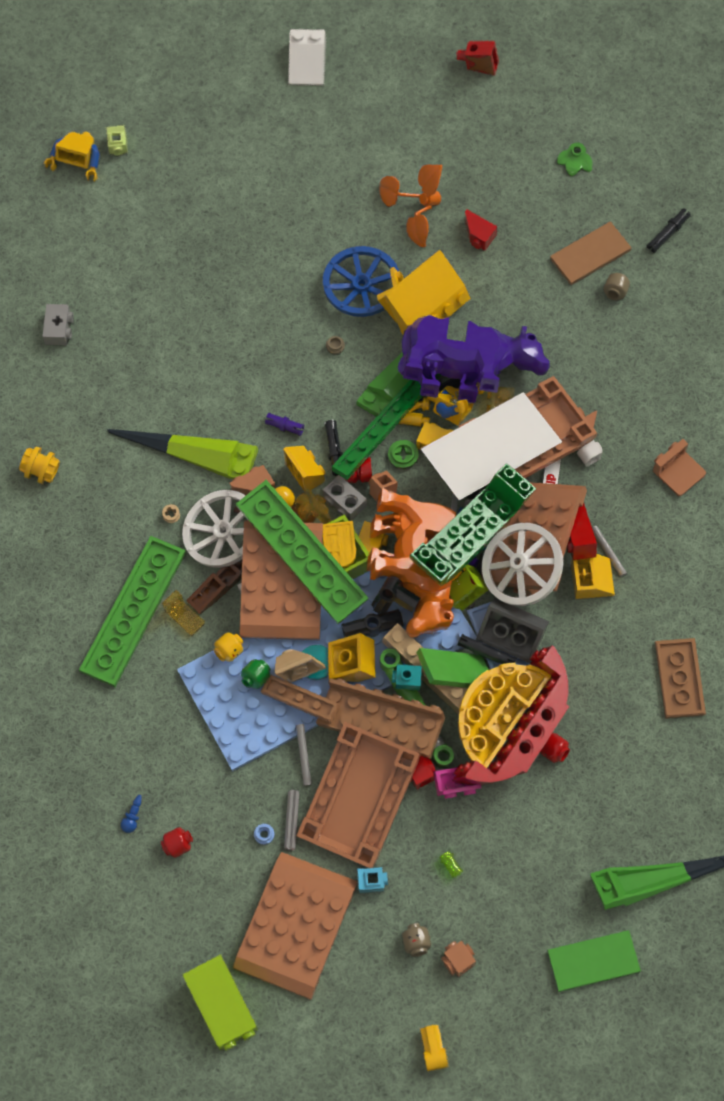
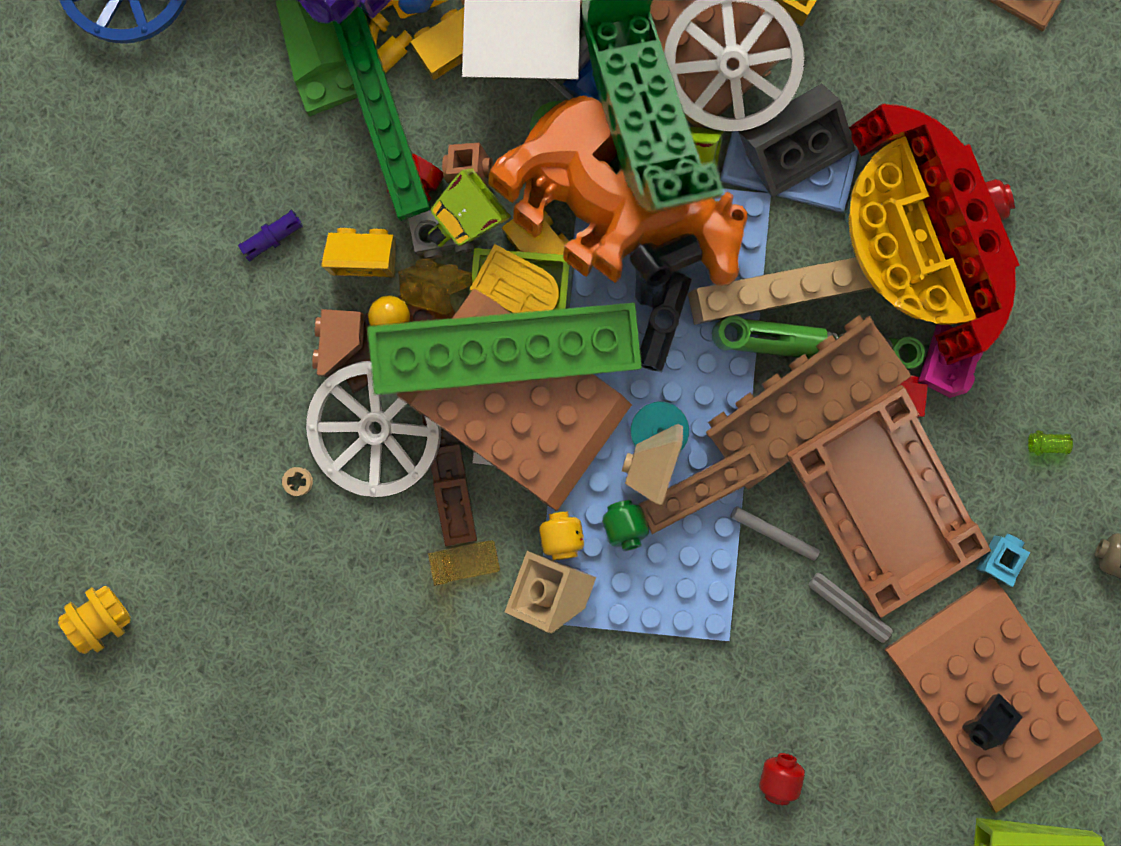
camera: 60 degrees left, 20 degrees up
(129, 823) = (707, 822): blue bar -> none
(132, 611) = (408, 627): bright green plate -> none
(196, 660) = (548, 592): none -> tan slope
(217, 455) = (255, 358): lime plate -> none
(264, 827) = (852, 663): light blue plate -> none
(278, 922) = (992, 723): none -> black bracket
(333, 442) = (366, 196): black pin -> none
(335, 345) = (196, 82): dark tan plate -> none
(352, 658) = (694, 383): yellow slope -> none
(358, 495) = (466, 210): none -> lime torso
(407, 677) = (786, 329): teal brick -> none
(409, 448) = (429, 90): bright green gear -> none
(451, 667) = (808, 257): bright green tile -> none
(486, 651) = (791, 201): black pin -> none

